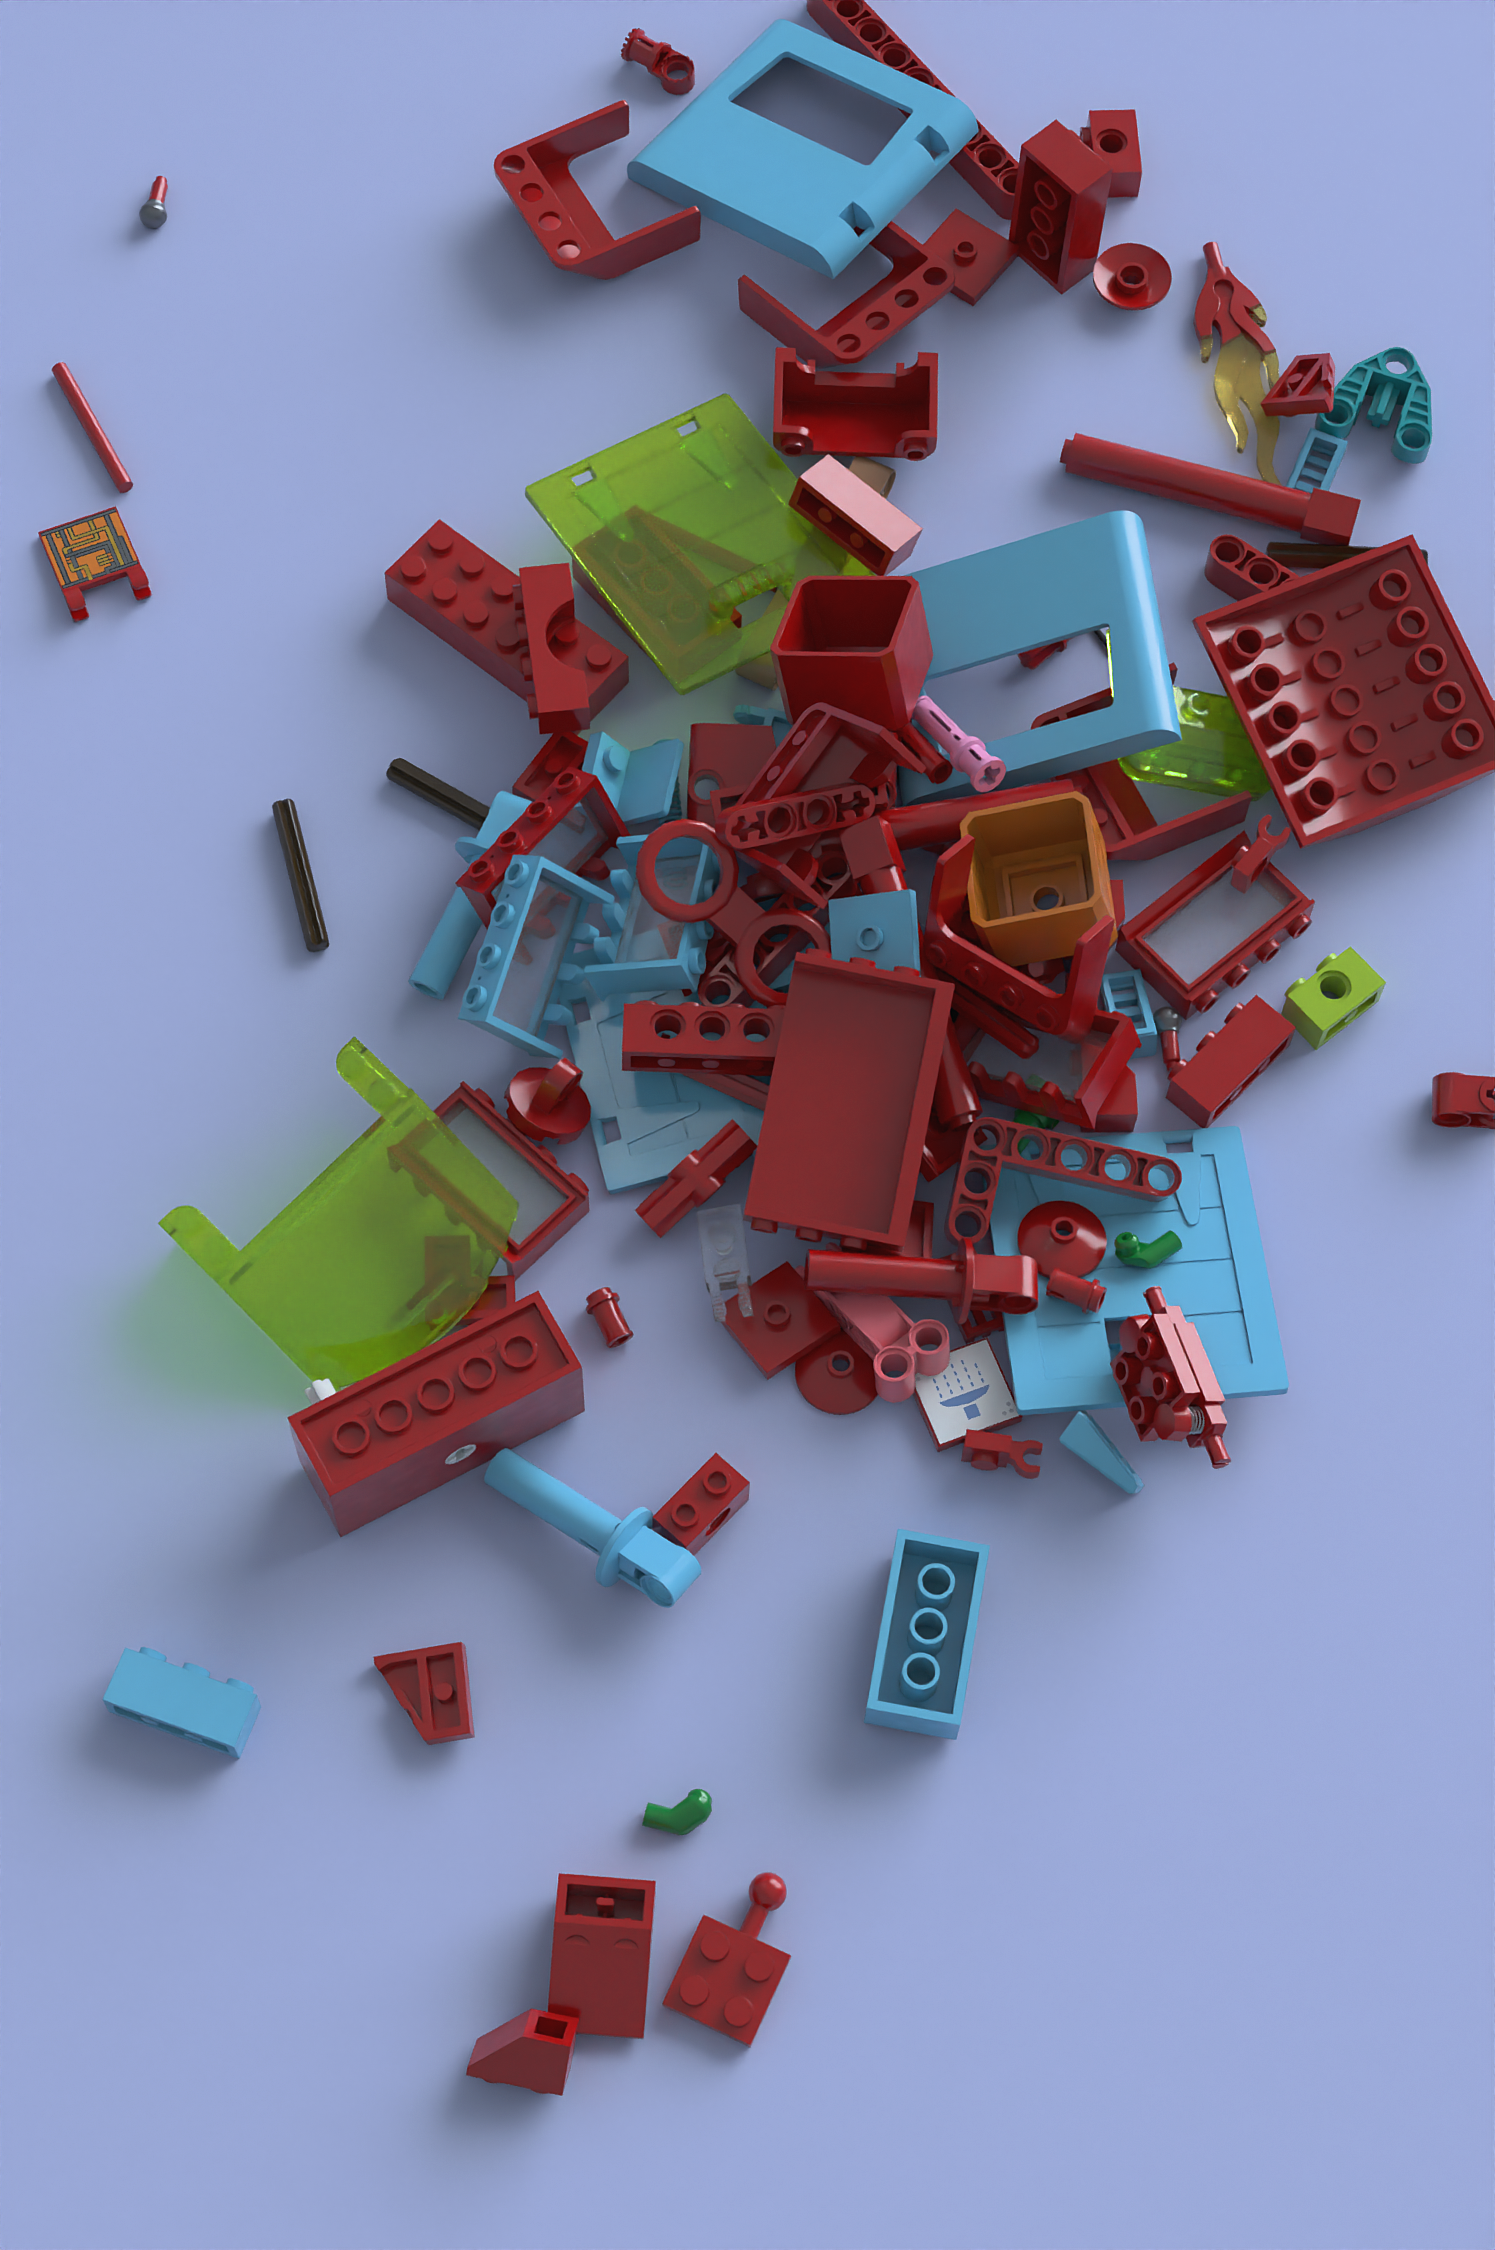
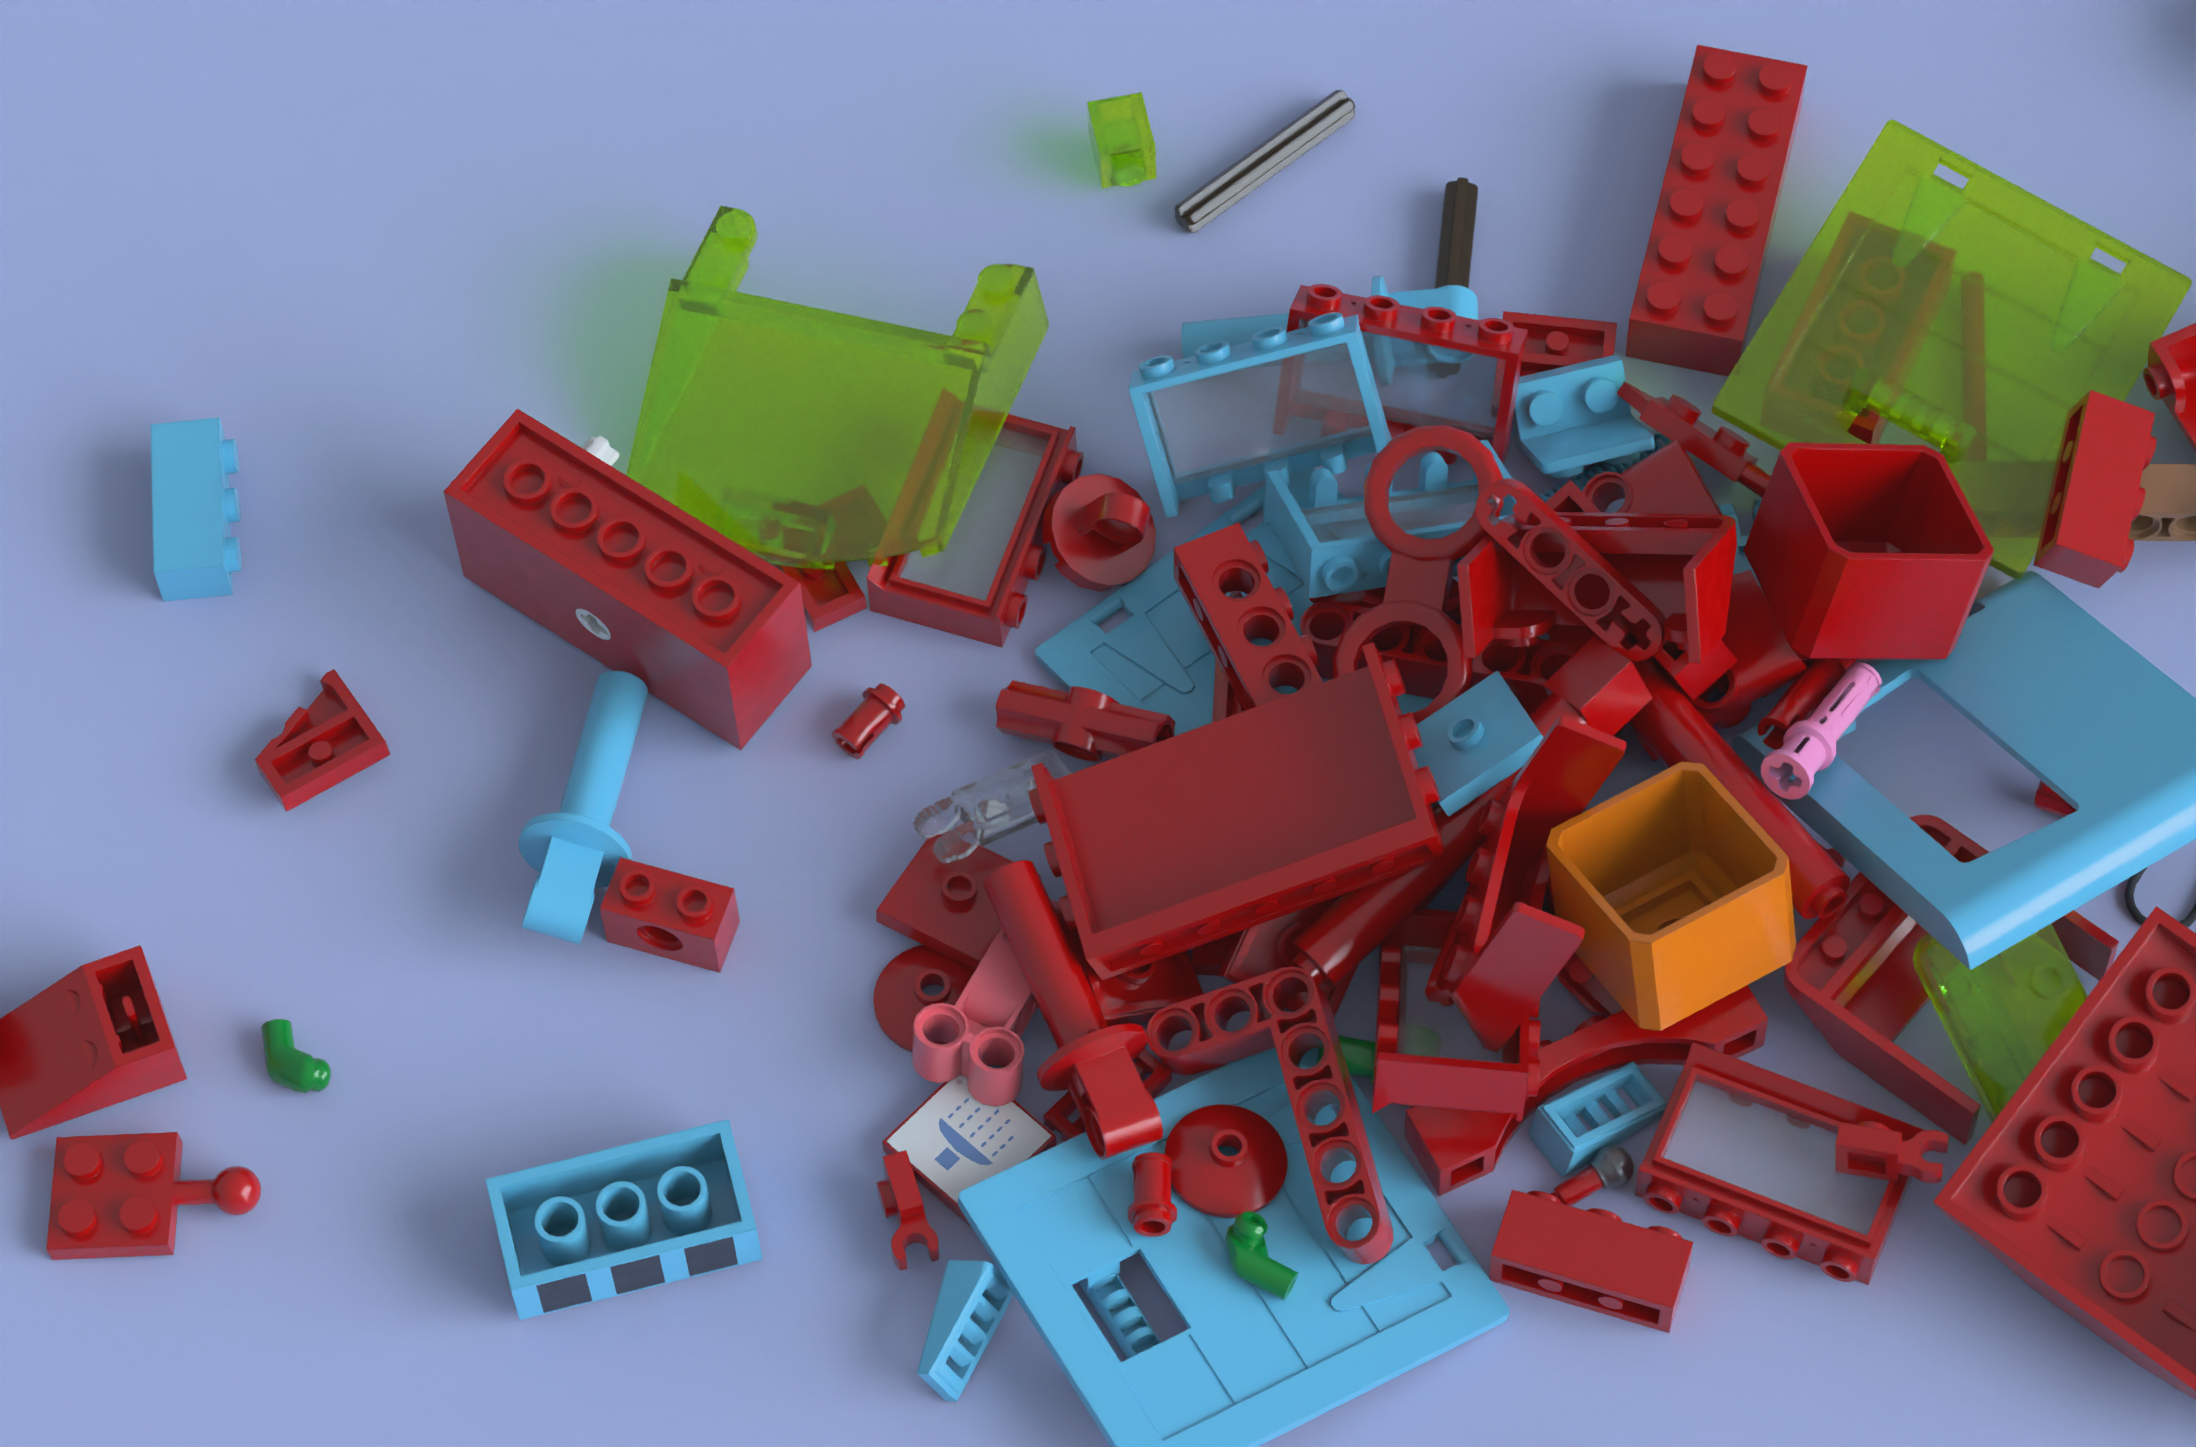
camera: 70 degrees right, 5 degrees down
(240, 951) = (1121, 140): none -> clear neon green brick
(559, 690) = (1739, 212): red arch -> none
(694, 709) = (1719, 449): none -> red plate
(1170, 1380) = (1057, 1364): red piece -> none
(1322, 1018) = (1771, 1376): lime brick -> none

